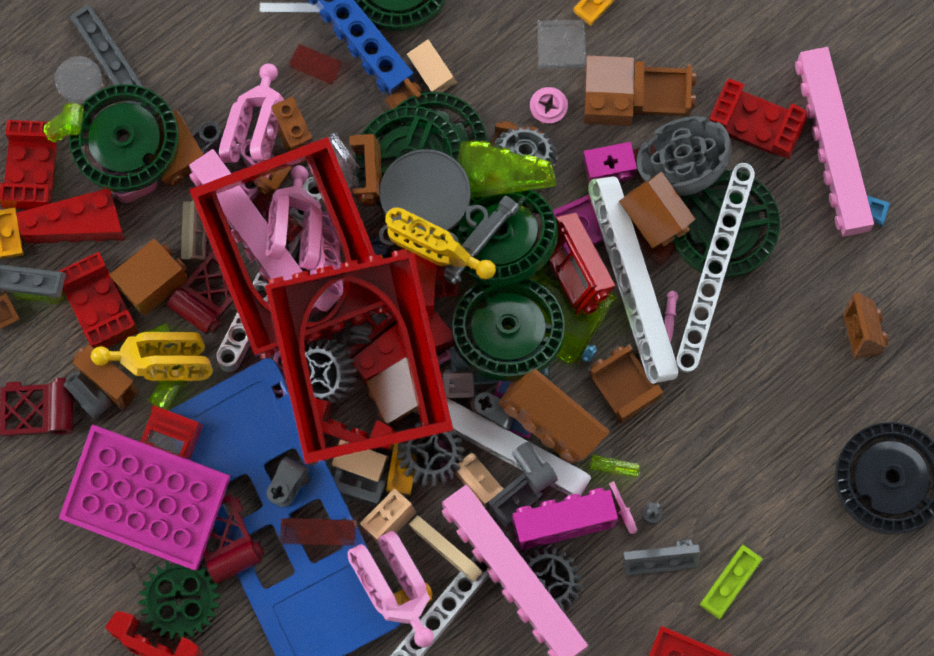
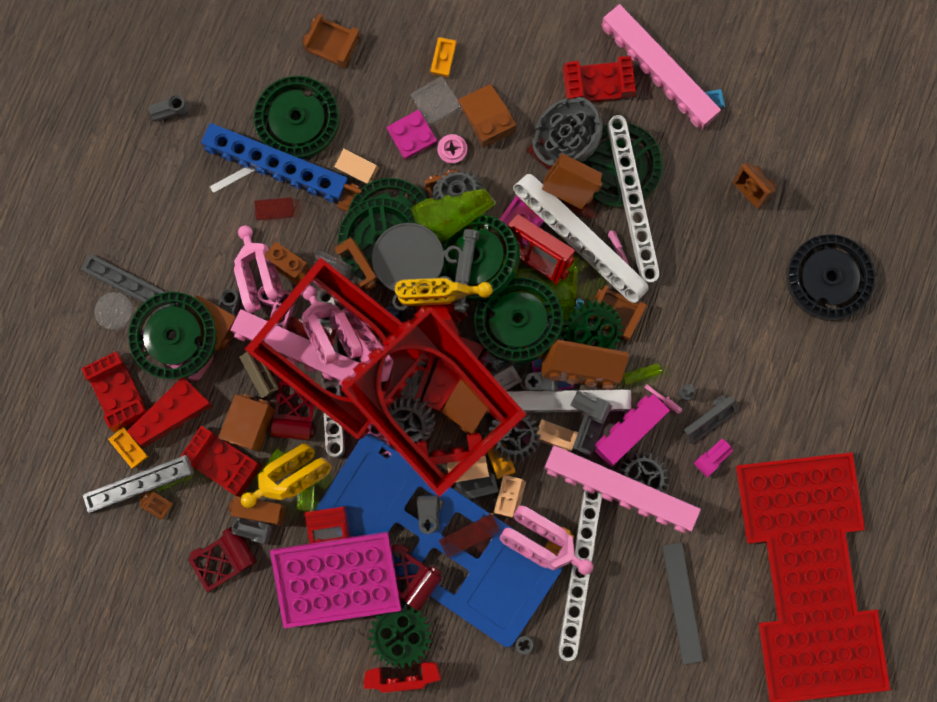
camera: 25 degrees left, 5 degrees up
(66, 123) = (127, 347): clear neon green piece -> none
(277, 178) = (295, 313): dark orange bracket -> none
(360, 335) = (418, 382): dark grey bush -> none
(445, 548) = (562, 496): tan beam -> none
(513, 66) = (411, 134): none -> dark pink plate
(575, 366) = (579, 321): none -> dark green gear
(619, 156) = (521, 157): dark pink brick -> none
(633, 604) = (710, 460): none -> dark pink piece
(663, 90) = (525, 94): dark orange panel -> none
(731, 582) = (764, 408): lime tile -> none

